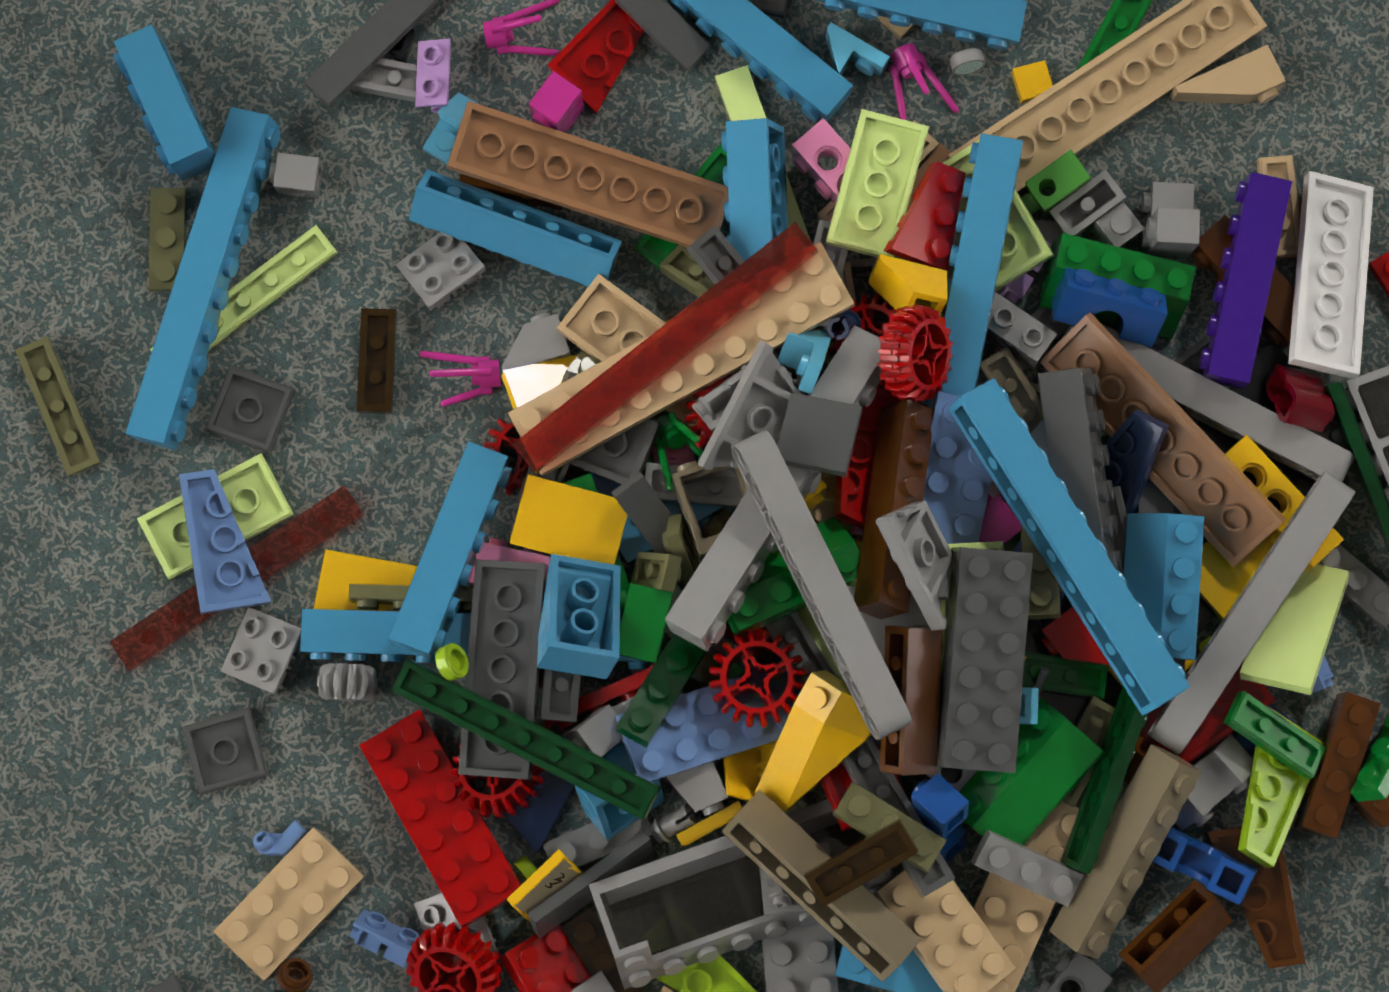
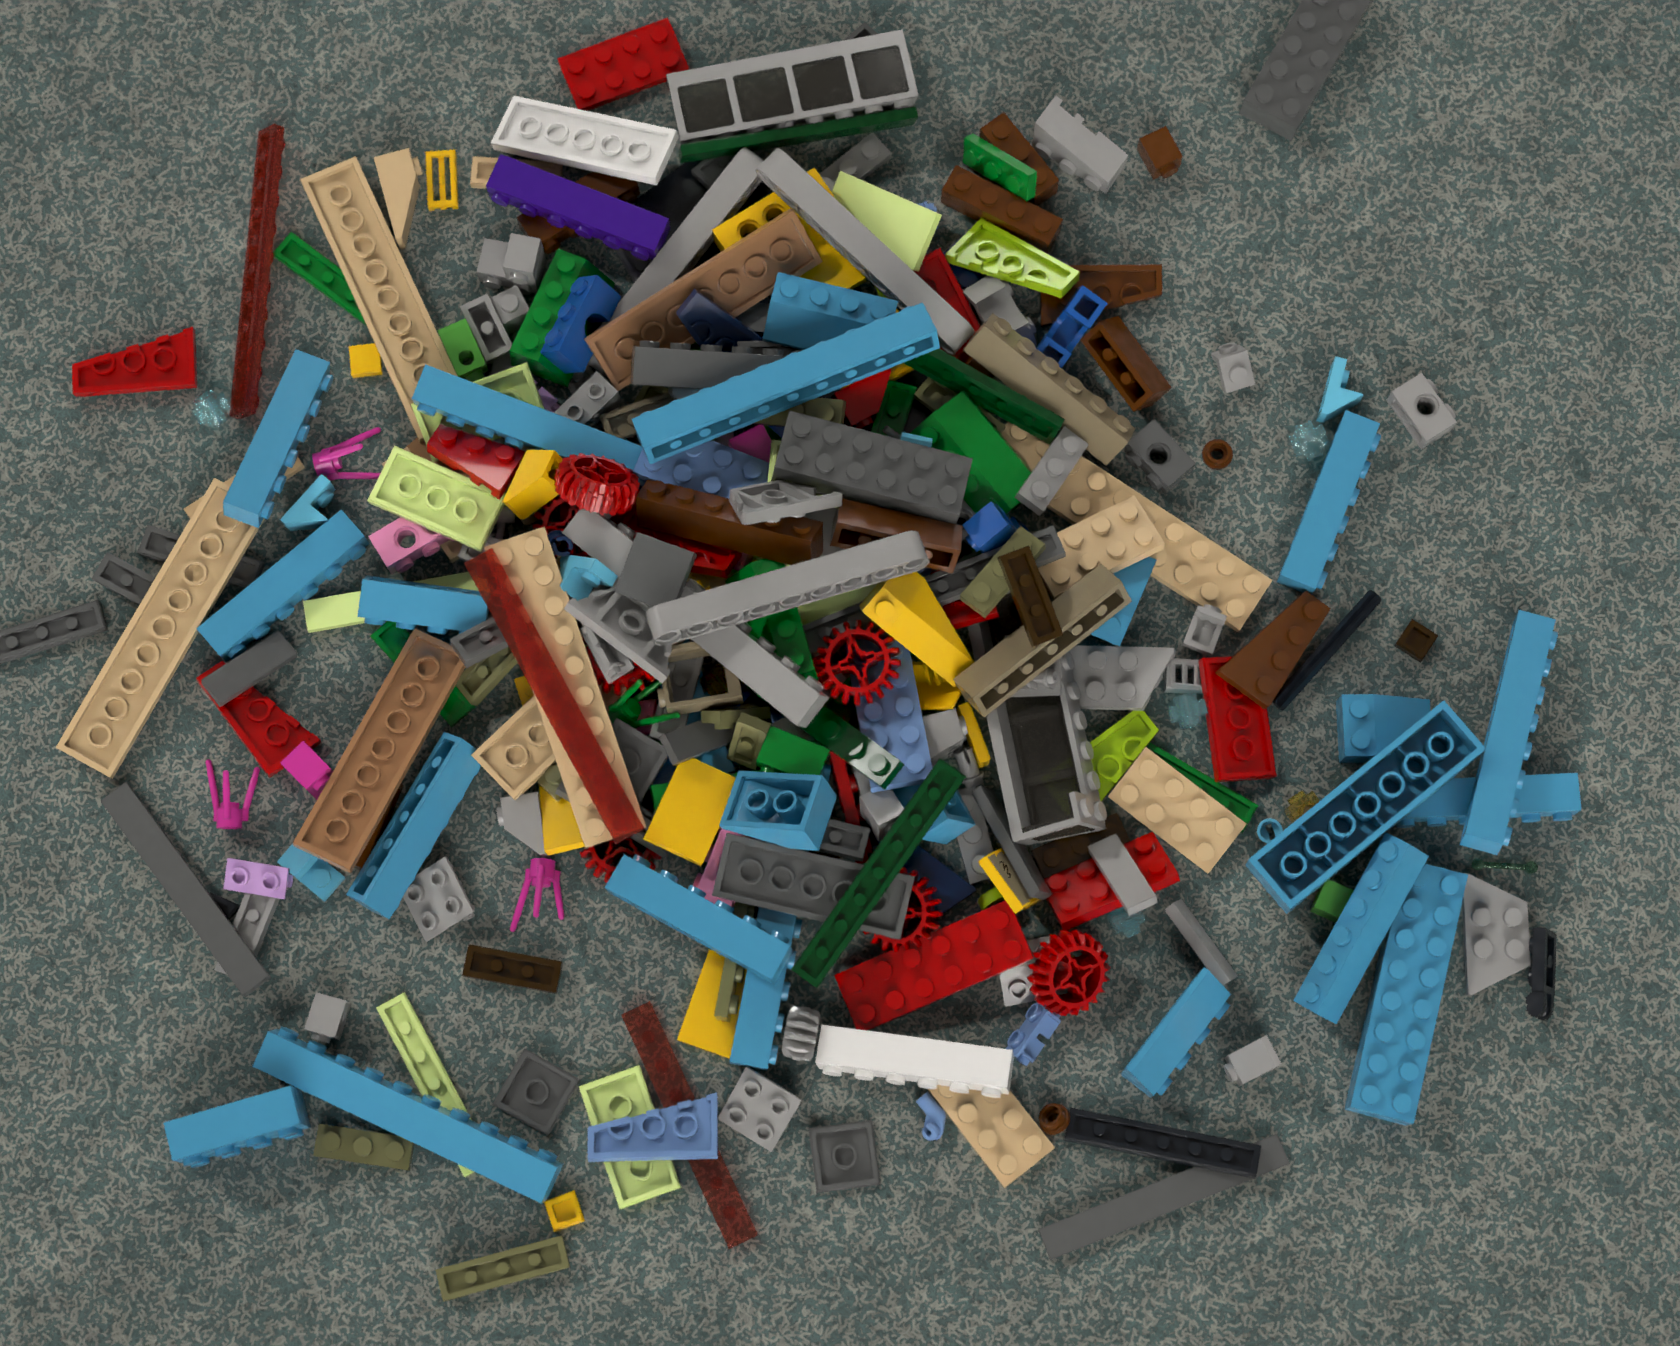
camera: 80 degrees left, 5 degrees down
(128, 461) = (564, 1211): none -> yellow tile
(334, 812) = (914, 1060): none -> white brick
(452, 661) = (800, 928): lime tile -> none
(967, 61) = (337, 411): light grey tile -> none
(1230, 133) = (443, 204): none -> yellow tile
(1274, 735) = (969, 252): green tile -> none
(1300, 398) = (687, 182): dark red brick -> none

